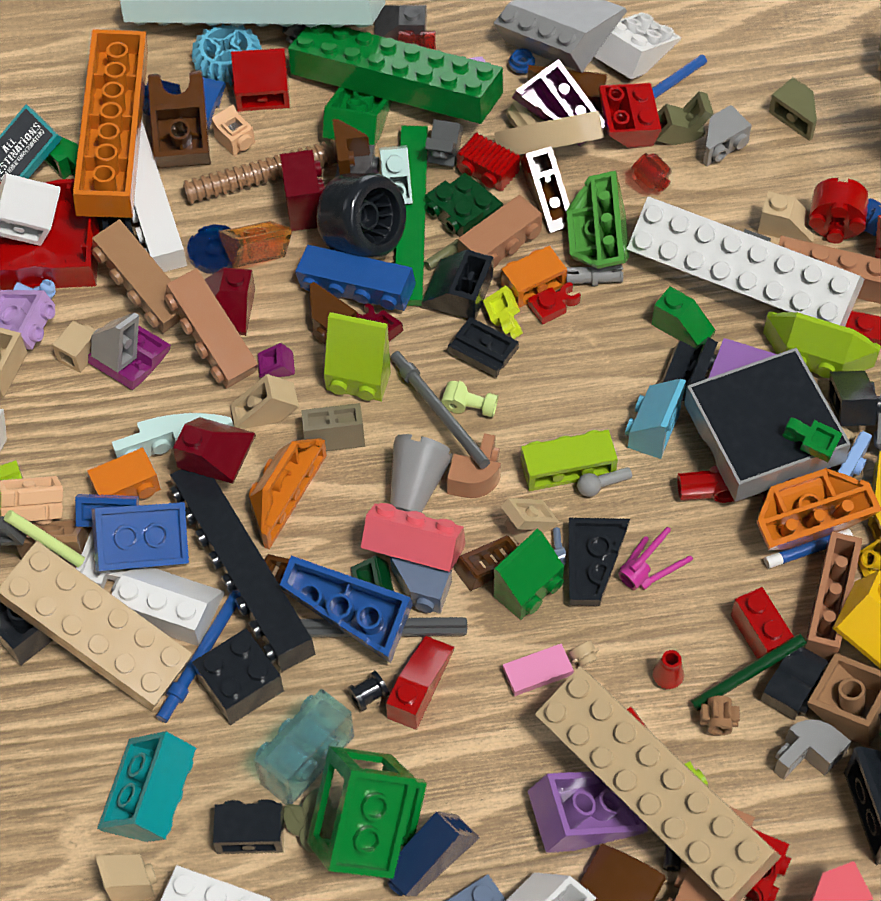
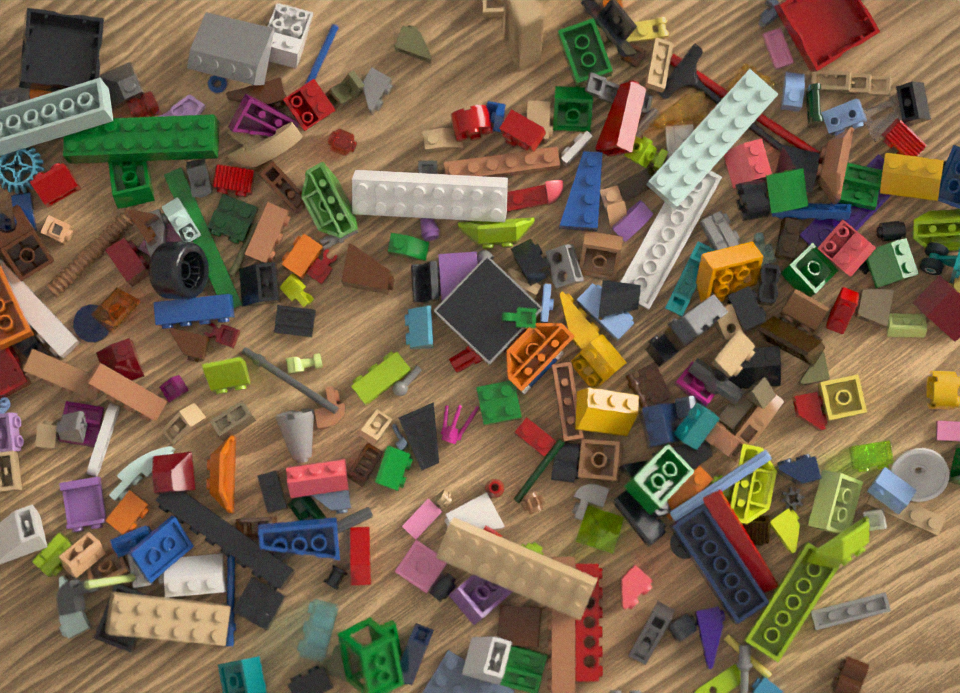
camera: 25 degrees left, 25 degrees up
(73, 443) = (84, 503): none -> medium lavender panel
(145, 381) = (103, 440): none -> white beam
(339, 536) = (272, 491): none -> black brick
(505, 736) = (420, 566): none -> bright pink tile
(523, 775) = (443, 587): none -> black brick
(610, 321) = (365, 272): none -> reddish brown slope
(633, 688) = (477, 513): none -> white slope
(723, 310) = (429, 229): none -> medium lavender cone
(726, 558) = (498, 403): none -> green brick
(808, 805) = (599, 529): none -> clear neon green slope

